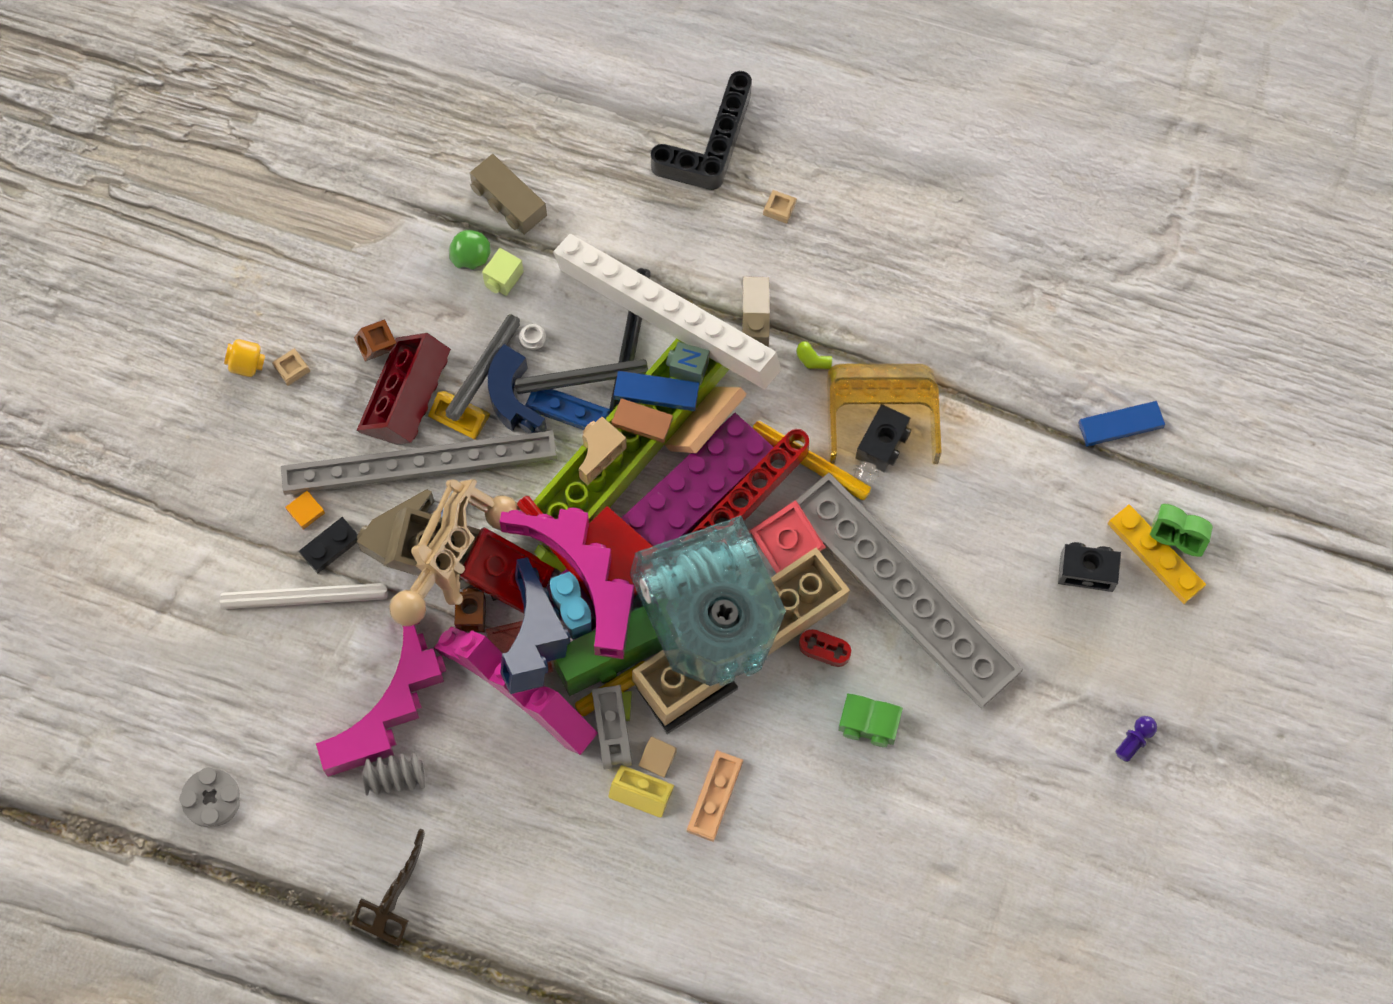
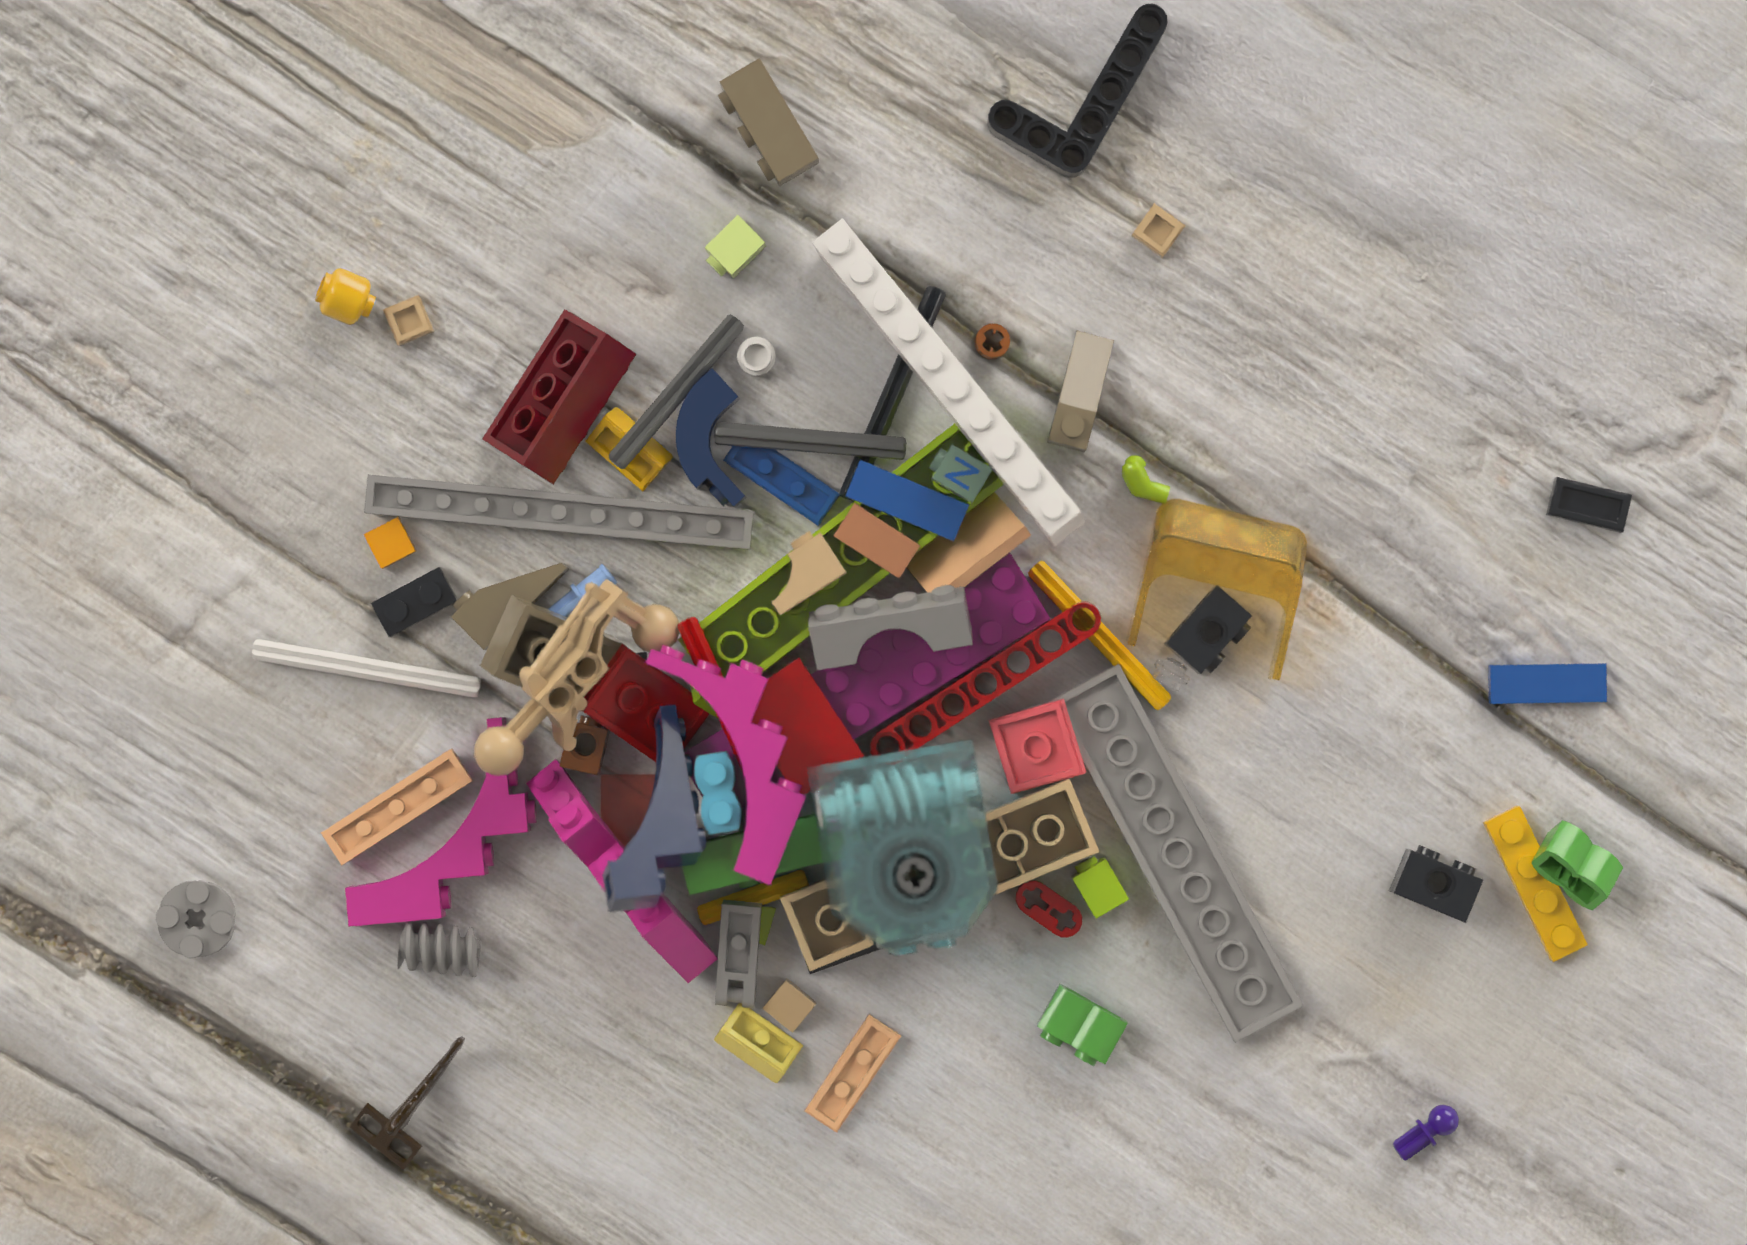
camera: 20 degrees right, 20 degrees up
(343, 684) = (397, 806): none -> light nougat plate
(375, 340) = (532, 317): dark orange brick -> none
(469, 249) = (695, 196): bright green hair -> none
(632, 482) = (936, 616): none -> light grey arch
(690, 286) = (981, 338): none -> dark orange bush
(856, 622) = (1098, 886): none -> lime brick
(1111, 308) = (1589, 504): none -> black tile

